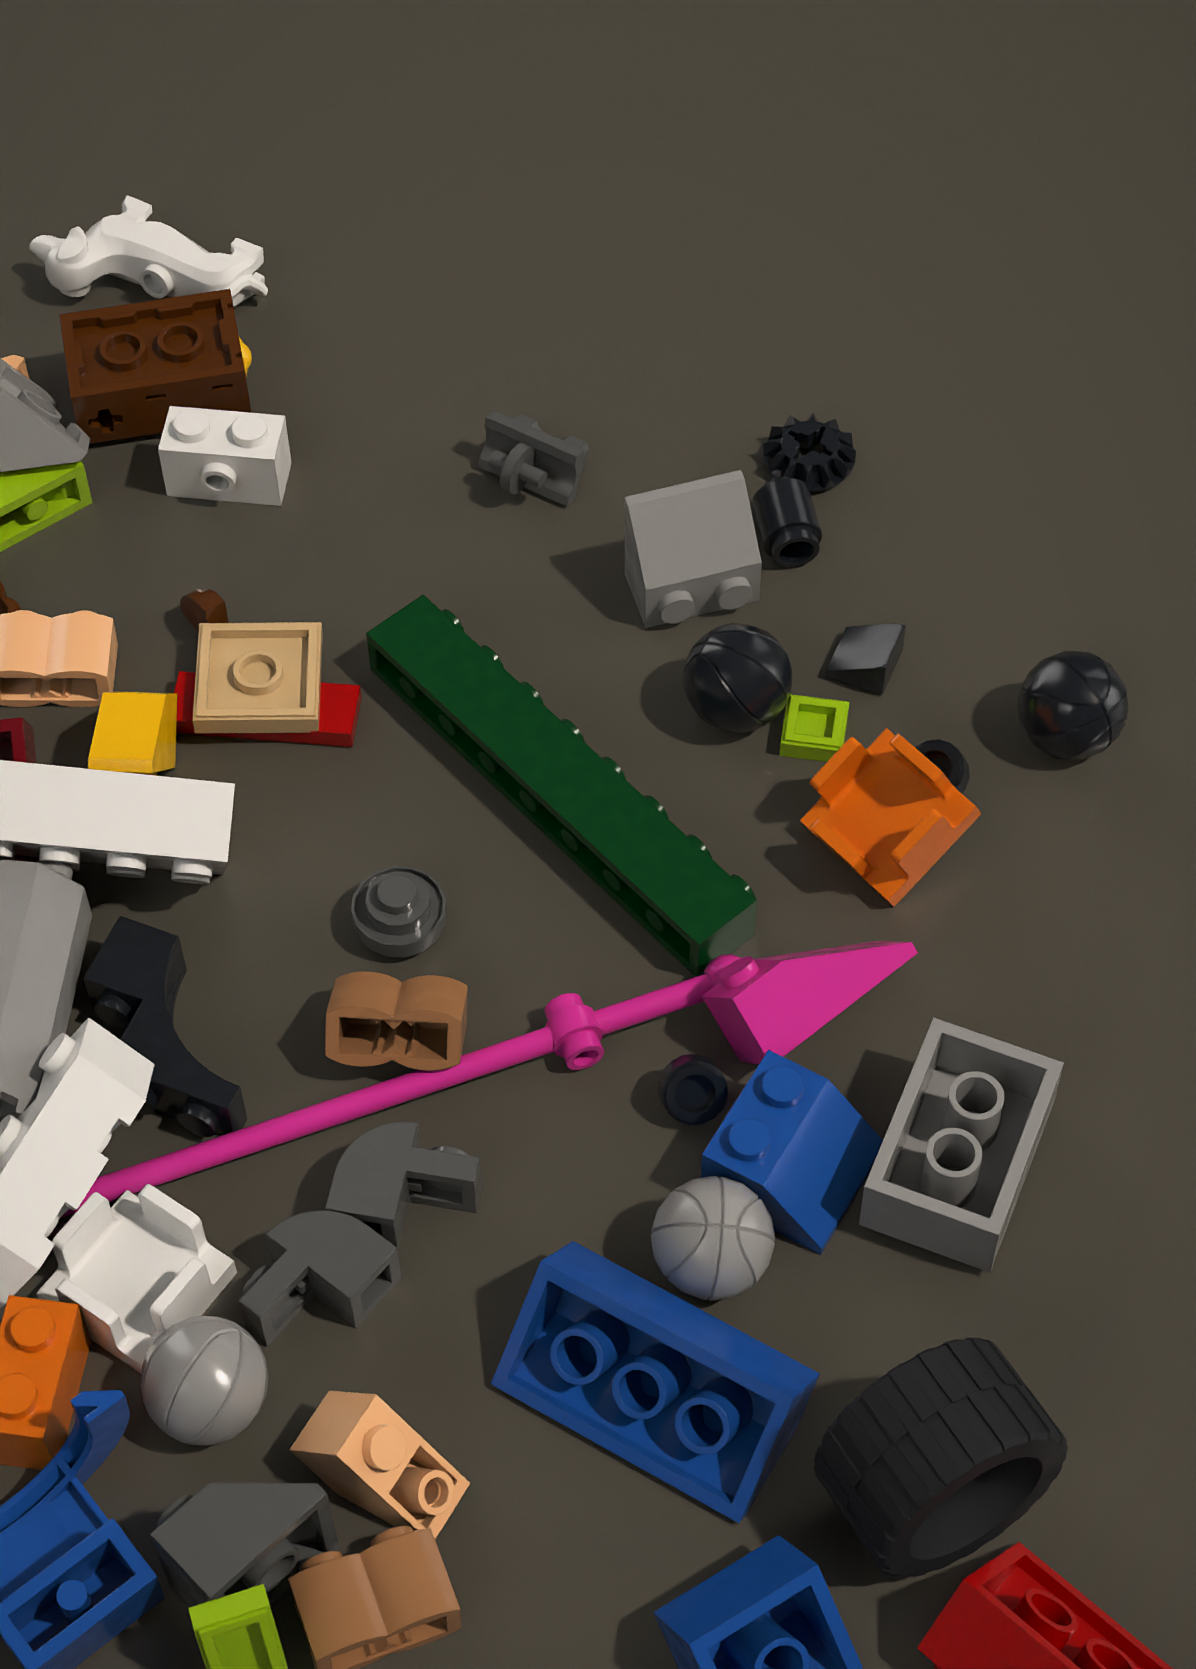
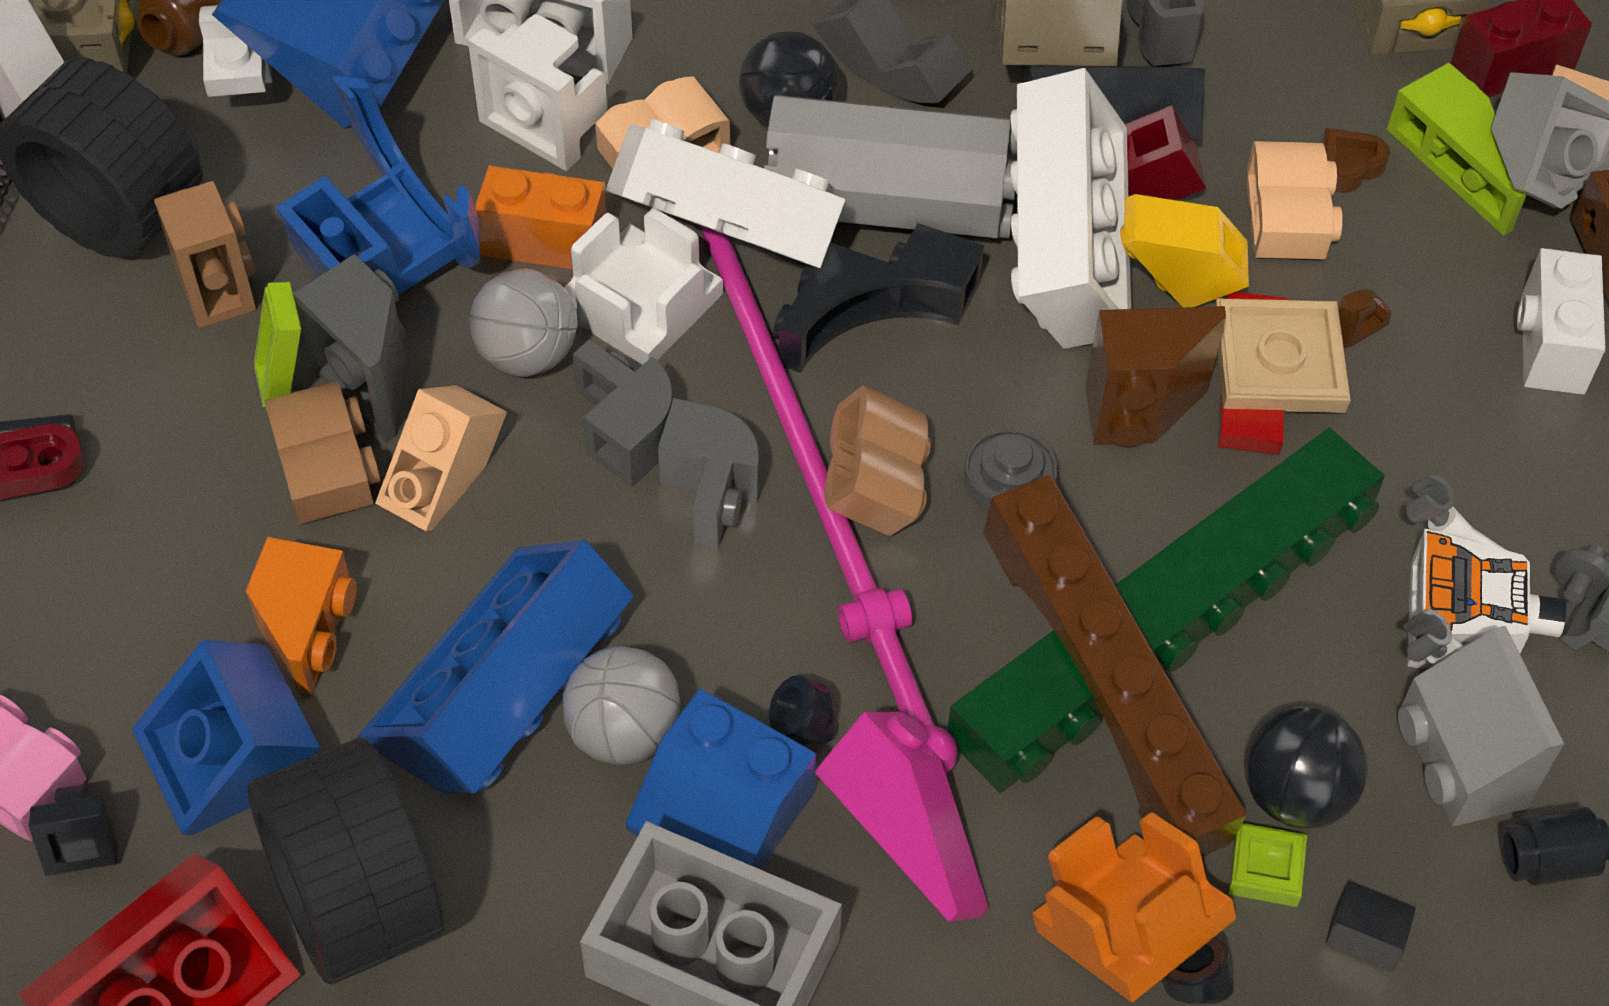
camera: 90 degrees right, 0 degrees up
(302, 777) = (1149, 370): none -> reddish brown slope
(530, 855) = (1157, 739): none -> reddish brown arch
(544, 556) = (1466, 584): none -> torso
(595, 1594) = (297, 604): none -> orange slope

